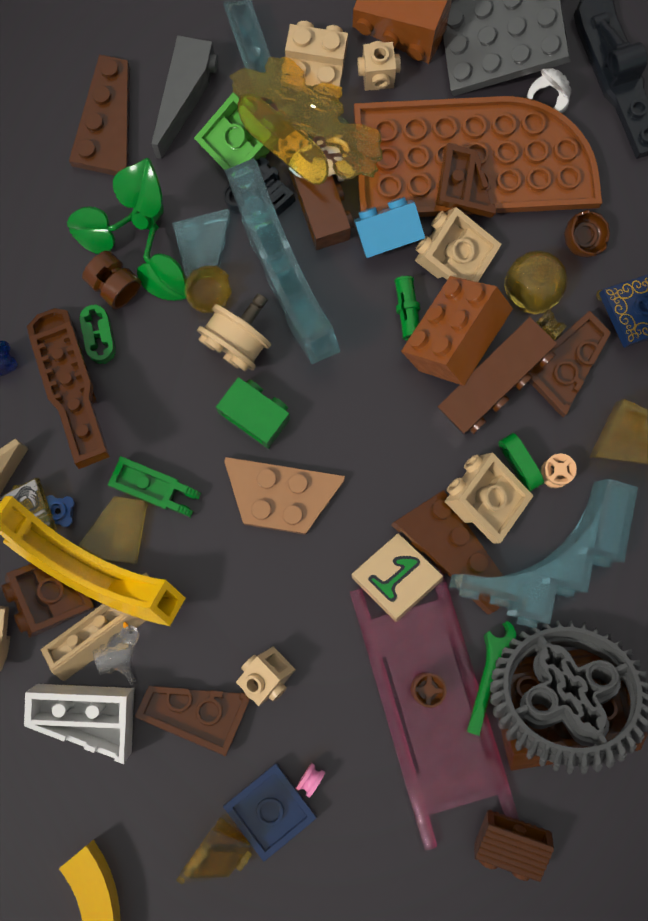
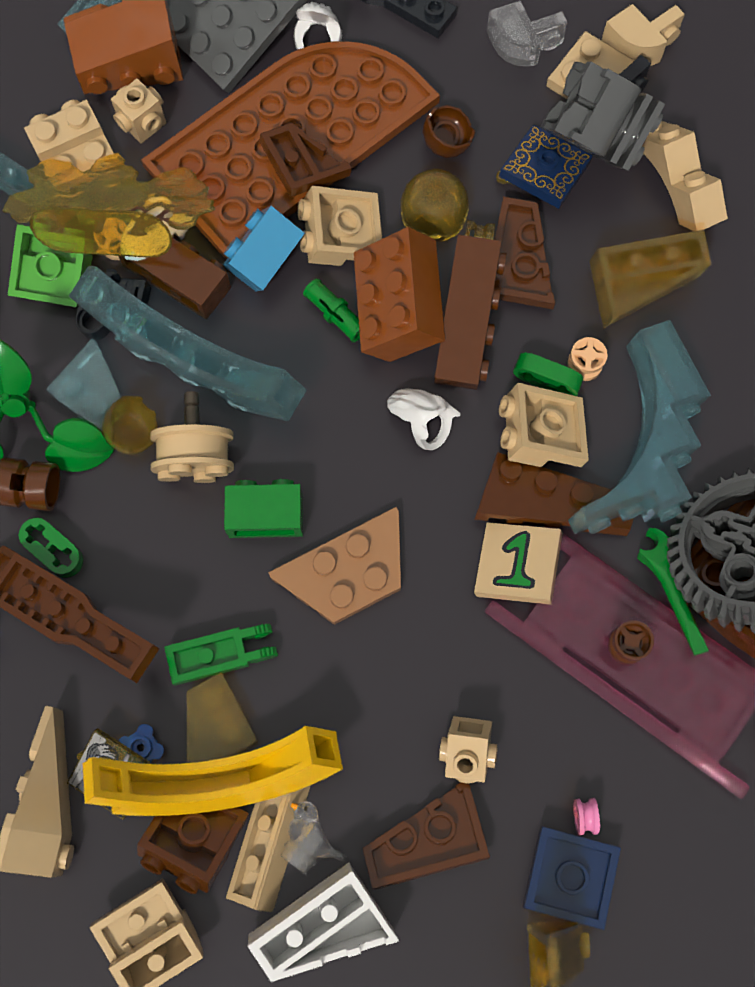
camera: 35 degrees left, 5 degrees down
(414, 420) = (419, 408): none -> white piece

